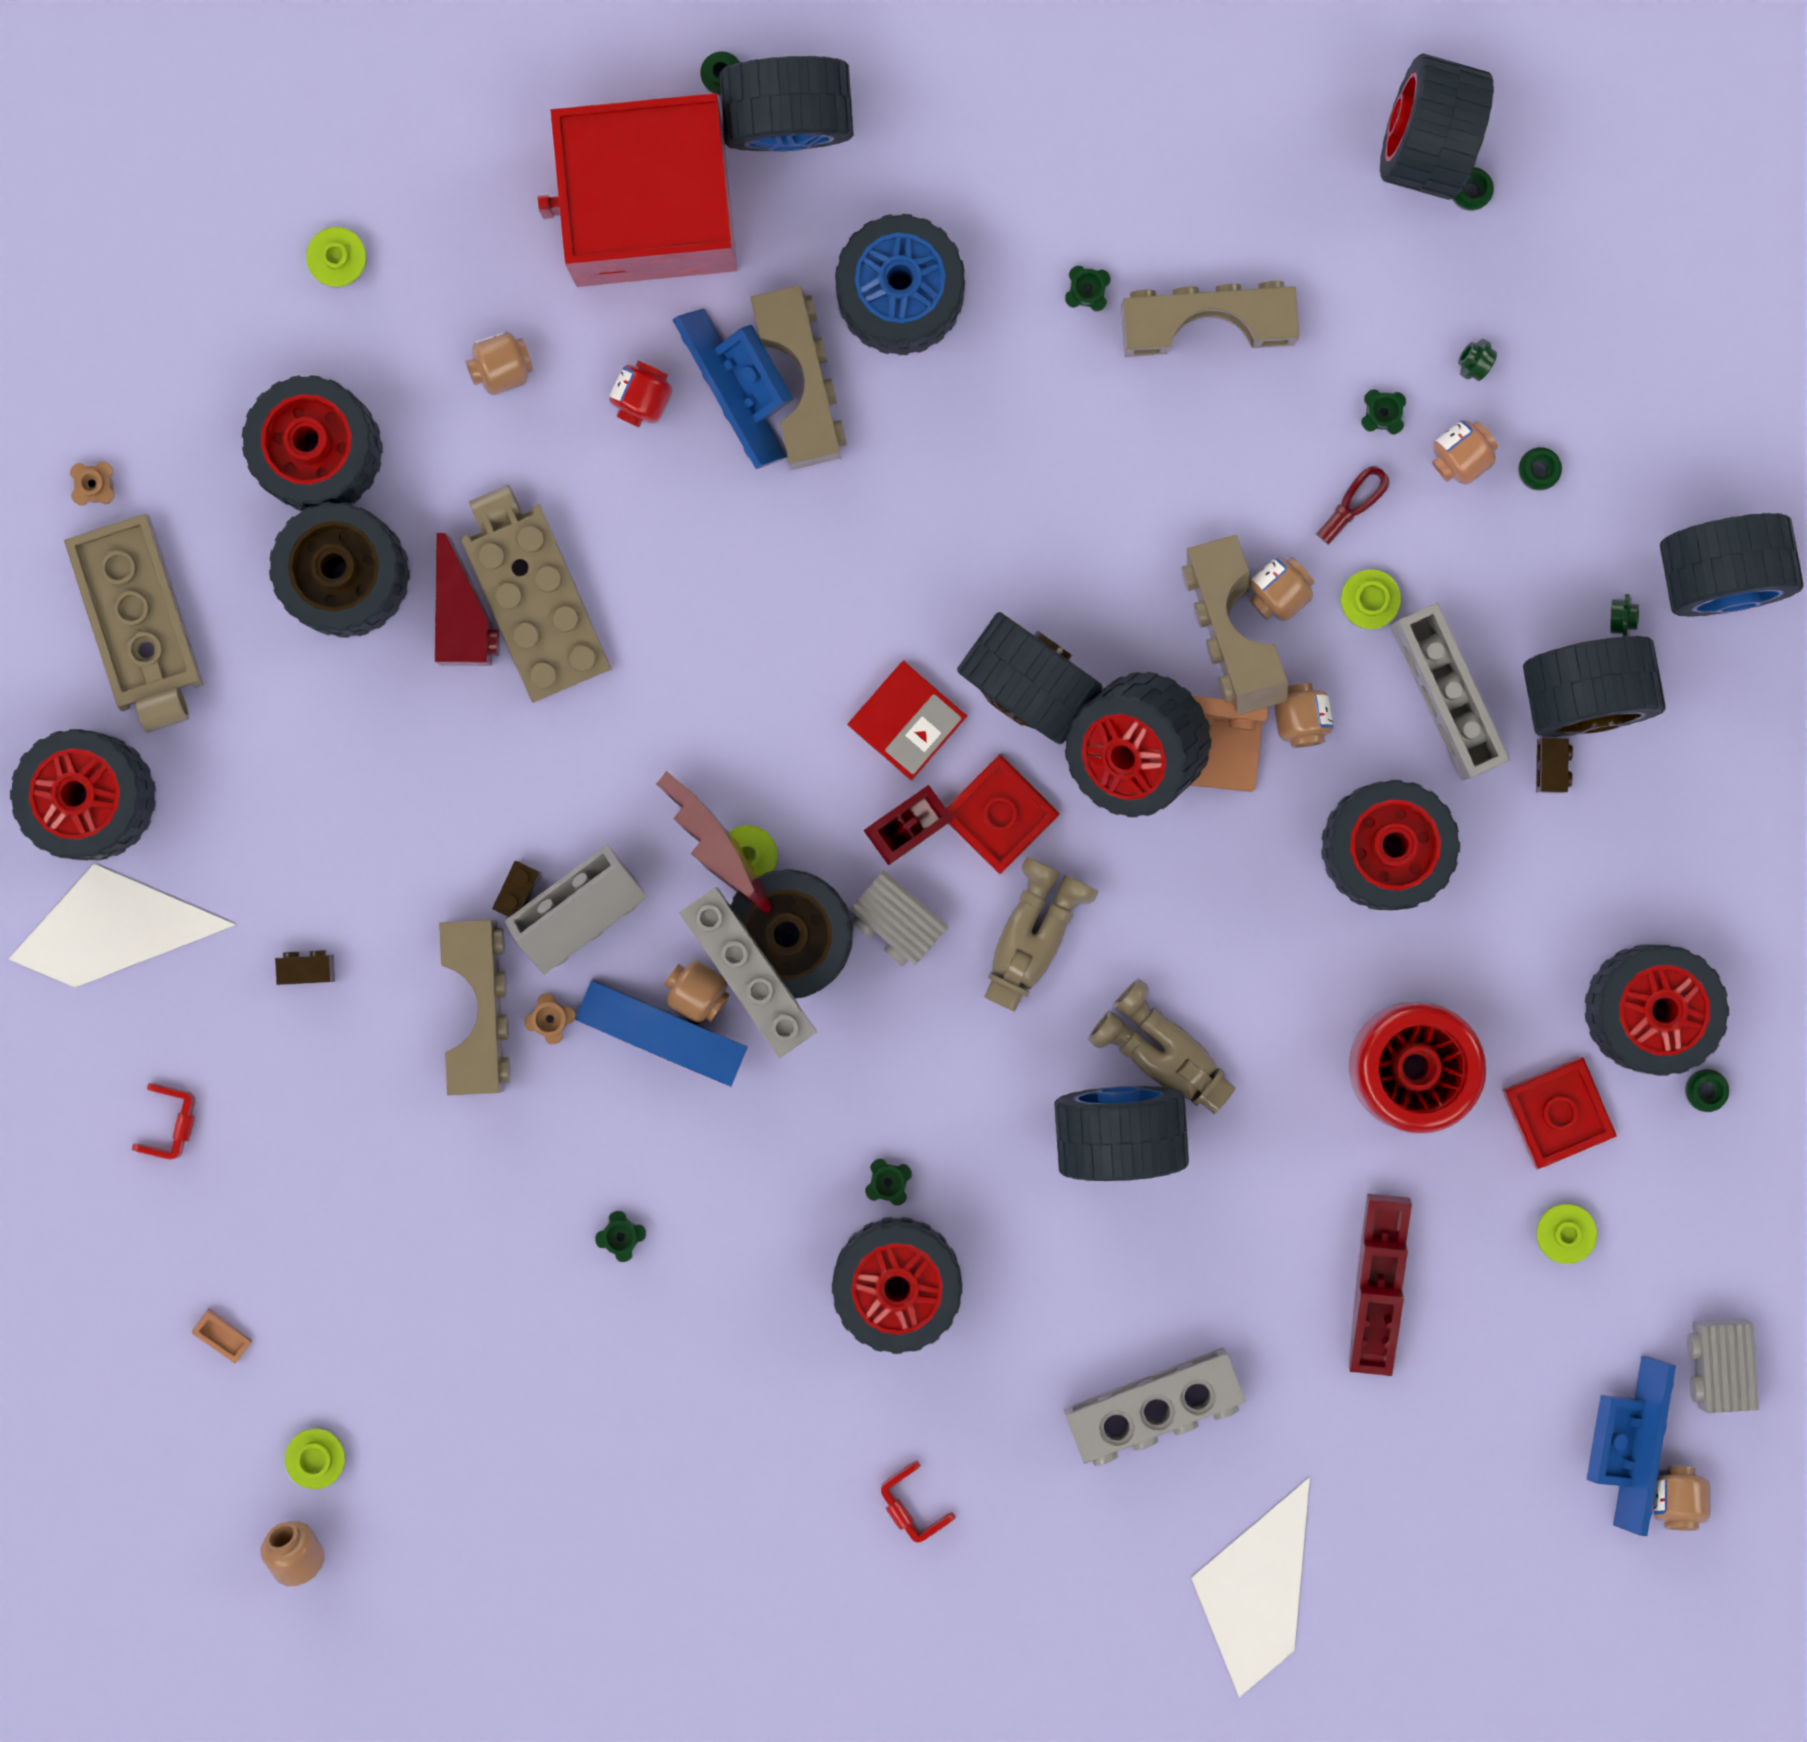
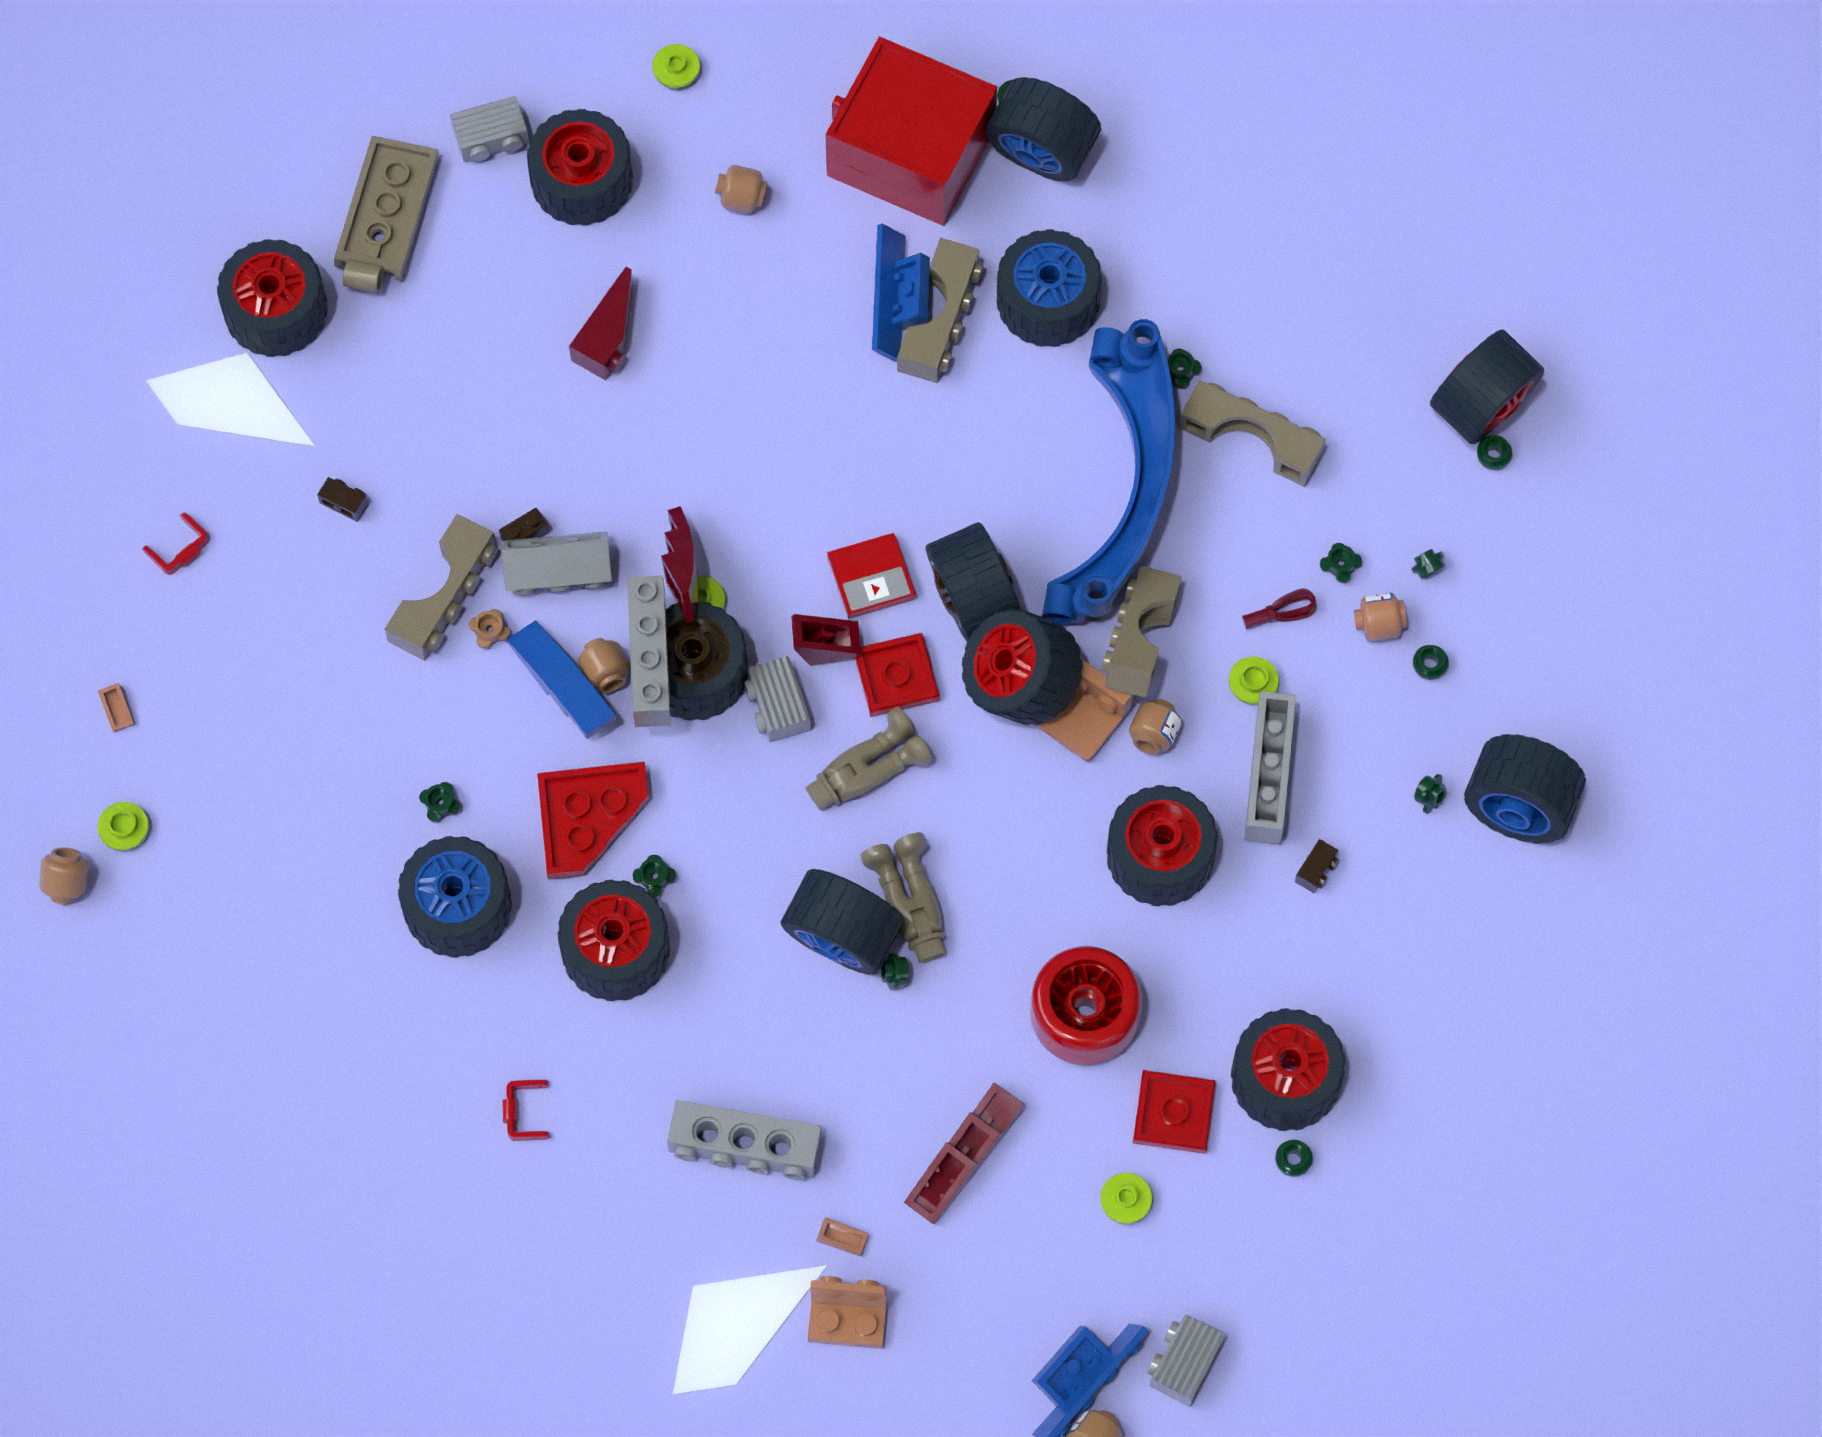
camera: 30 degrees right, 20 degrees down
(103, 489) = (415, 123): medium nougat plate -> none
(185, 455) = (489, 129): none -> light grey brick
(306, 562) = (544, 254): wheel -> none
(538, 611) = (663, 360): dark tan hinge -> none
(640, 394) = (824, 260): red head -> none
(697, 1370) = (455, 896): none -> black wheel
(778, 1159) = (586, 813): none -> red plate
(1083, 354) = (1142, 389): none -> blue panel
(1199, 1139) = (895, 971): none -> dark green plate
(1281, 589) = (1192, 633): medium nougat head -> none
(1307, 1441) = (841, 1237): none -> nougat piece
(1366, 1522) = (847, 1312): none -> nougat bracket
(1594, 686) = (1374, 814): black wheel -> none

